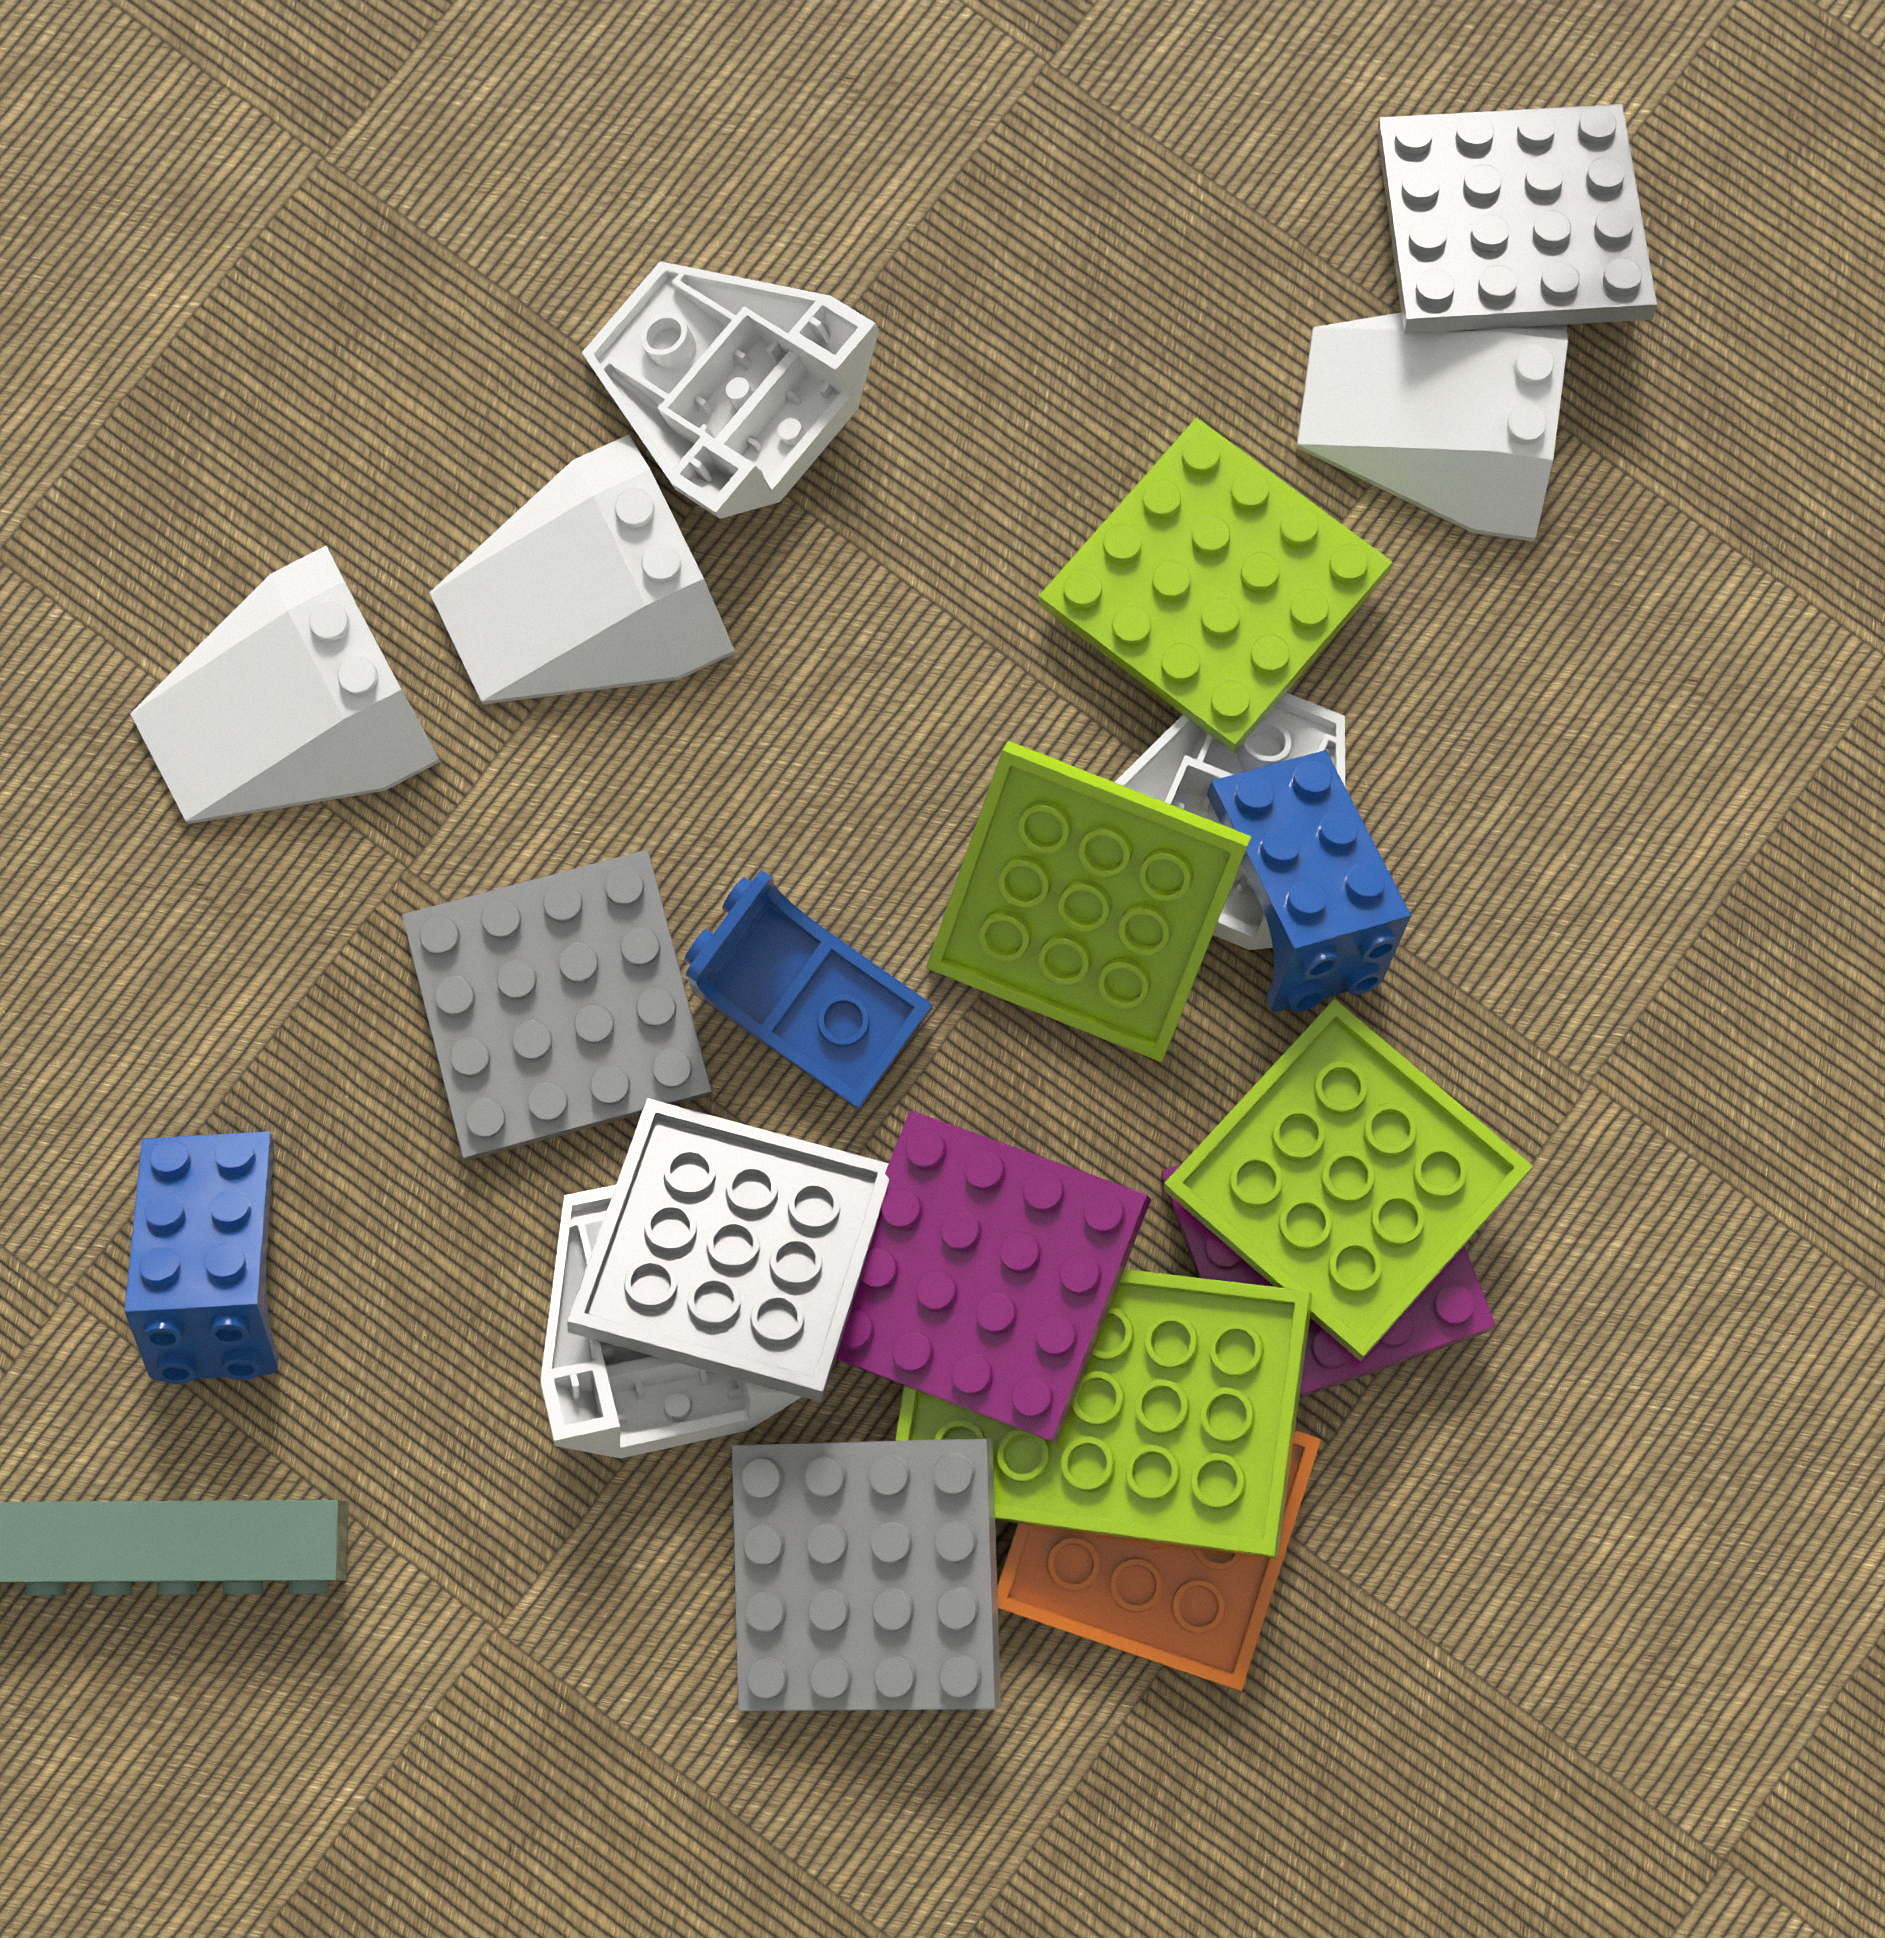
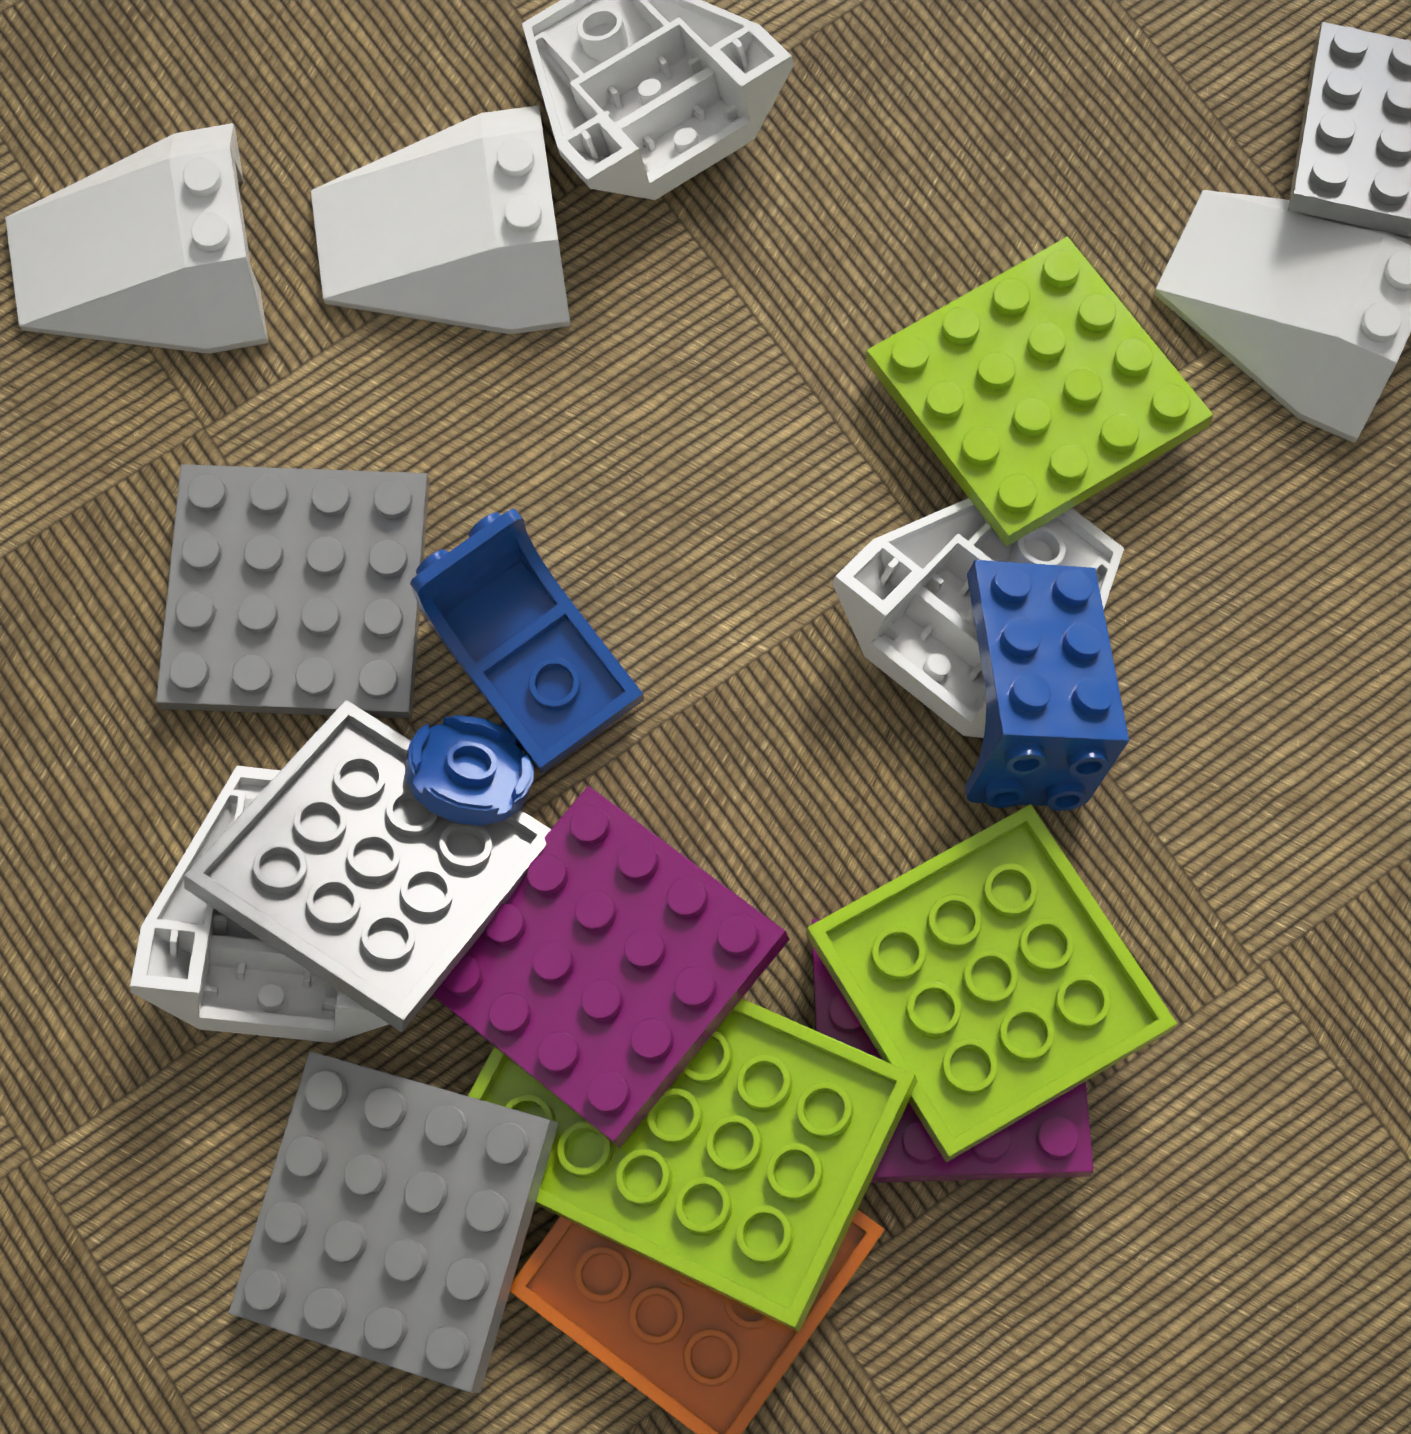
camera: 20 degrees right, 5 degrees down
(791, 1131) = (468, 770): none -> blue tile
(1086, 901) = (819, 635): lime plate -> none

